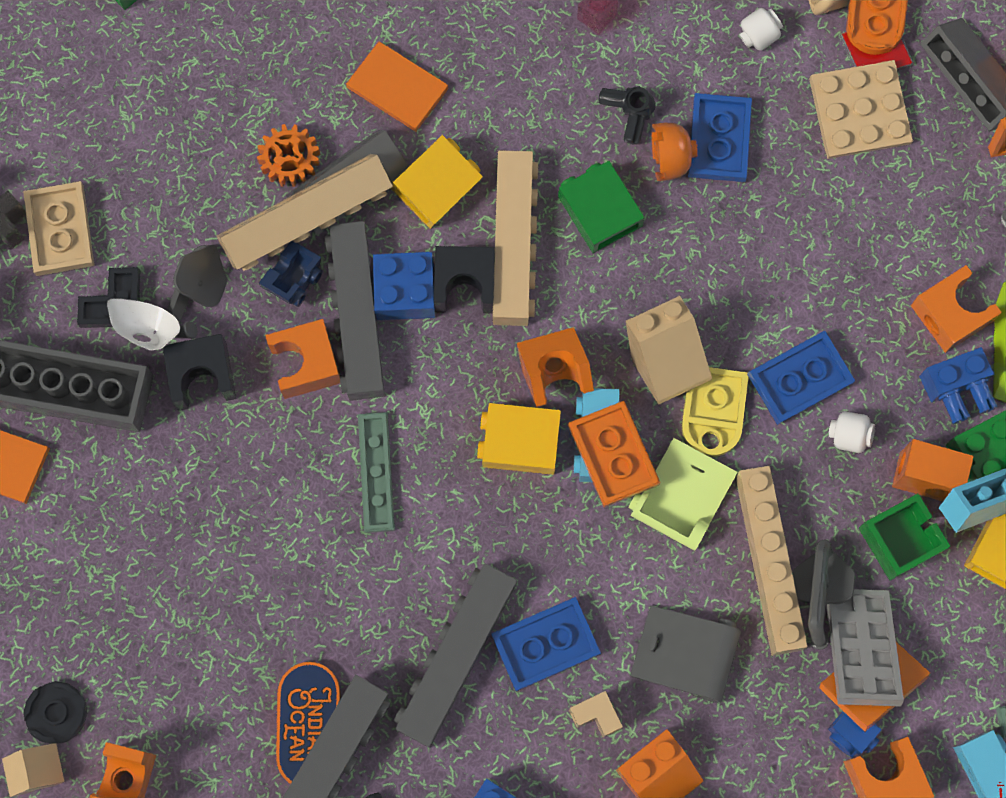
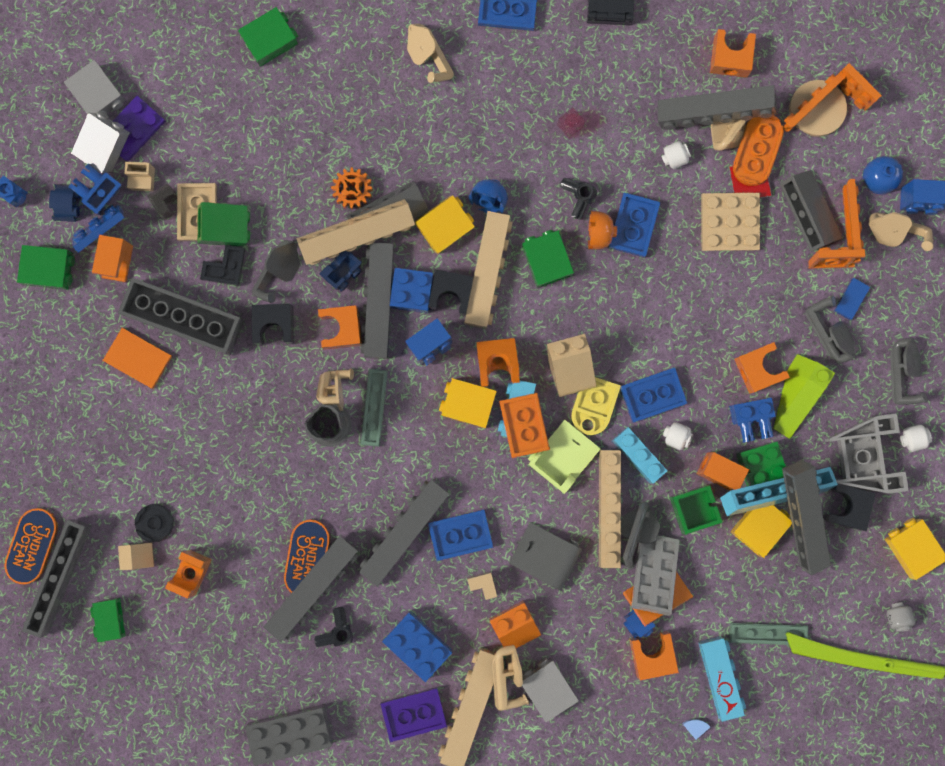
camera: 10 degrees right, 10 degrees up
(100, 236) = (222, 224): none -> green brick
(142, 318) = (242, 283): white piece -> none
(305, 529) = (344, 424): none -> dark grey piece
(308, 453) = (325, 387): none -> tan piece
(397, 86) = (430, 152): orange tile -> none
(445, 353) = (429, 342): none -> blue brick
(494, 129) = (489, 195): none -> blue cylinder
(799, 471) = (639, 455): none -> medium azure brick

